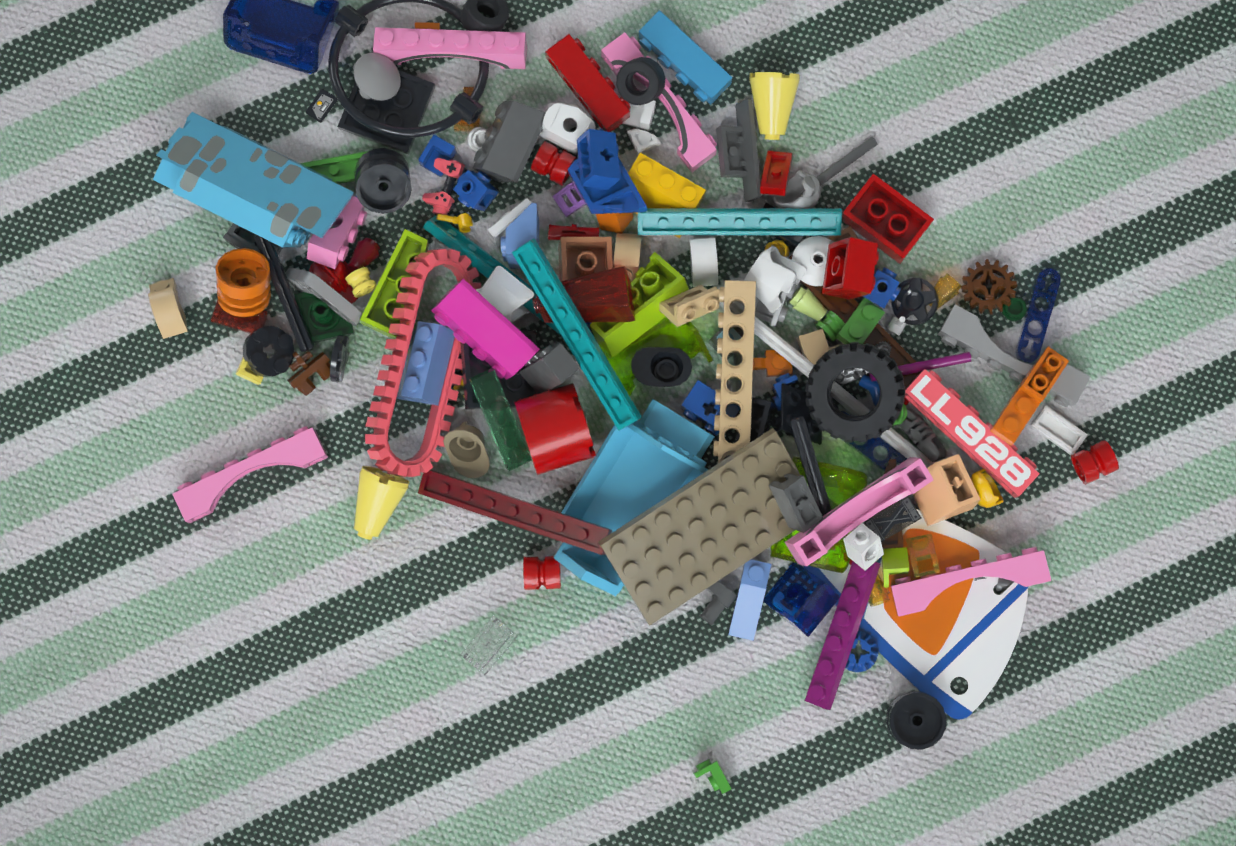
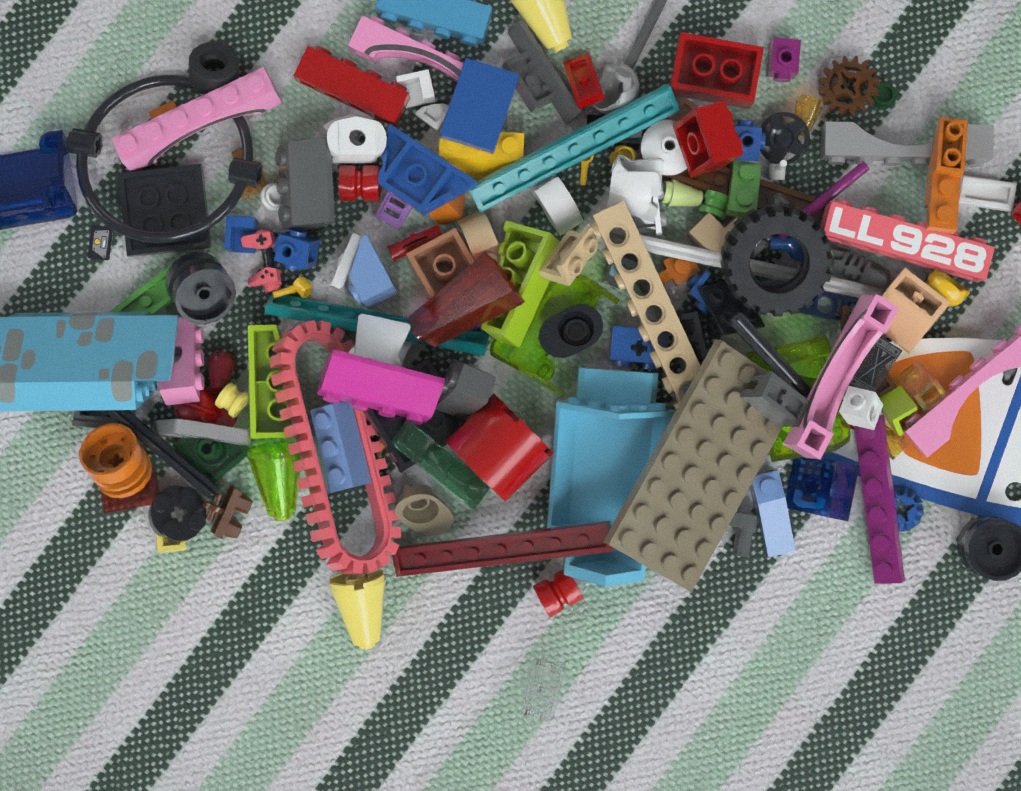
camera: 25 degrees left, 5 degrees up
(167, 308) = (53, 523): tan brick -> none
(202, 497) = (189, 688): bright pink arch -> none
(339, 358) = (249, 486): black wheel -> none
(362, 363) = (275, 478): none -> clear neon green cone
(376, 76) = (139, 187): light grey dish -> none
(576, 334) = (474, 345): teal tile -> none
(598, 159) = (404, 157): blue brick -> none
(627, 88) = (403, 74): black tyre -> none
(680, 150) = (479, 106): none -> blue tile
(717, 777) = (830, 702): bright green bracket -> none
(743, 240) = (584, 170): none -> yellow hand
(947, 238) = (783, 59): none -> magenta brick
(1041, 317) = (913, 90): clear blue beam -> none

